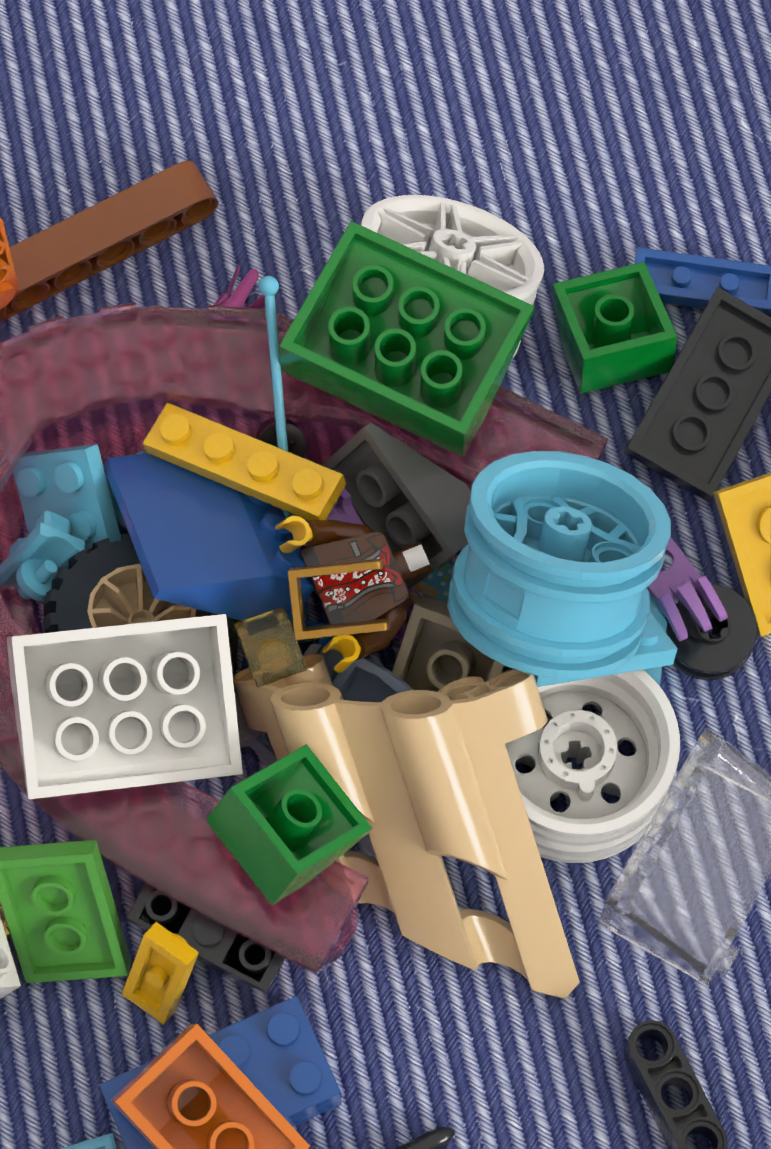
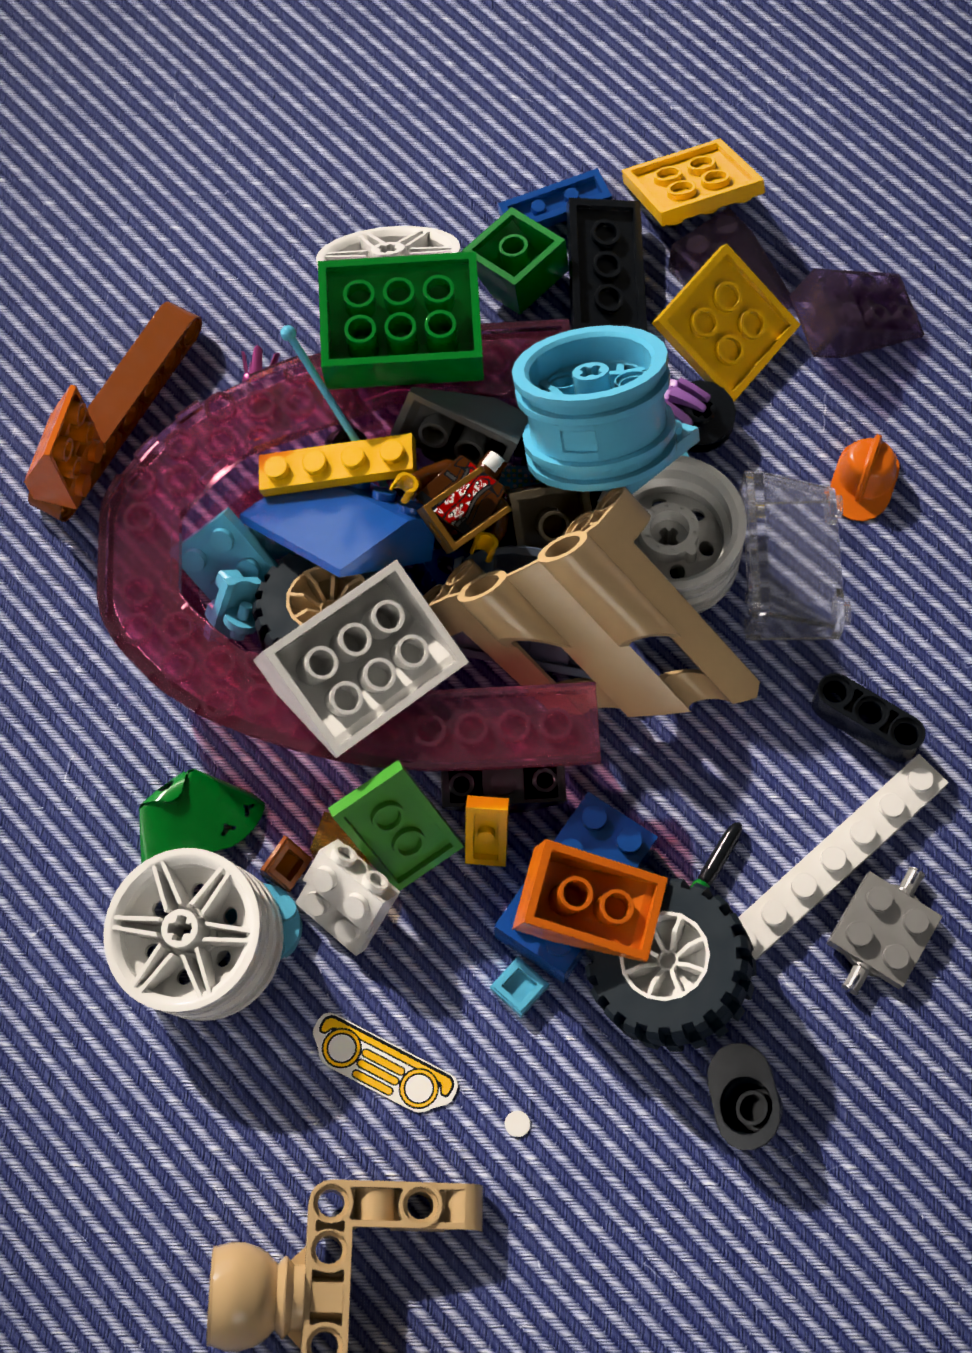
camera: 25 degrees left, 0 degrees up
(270, 647) = (434, 570): clear yellow brick -> none
(287, 823) = (523, 674): green slope -> none

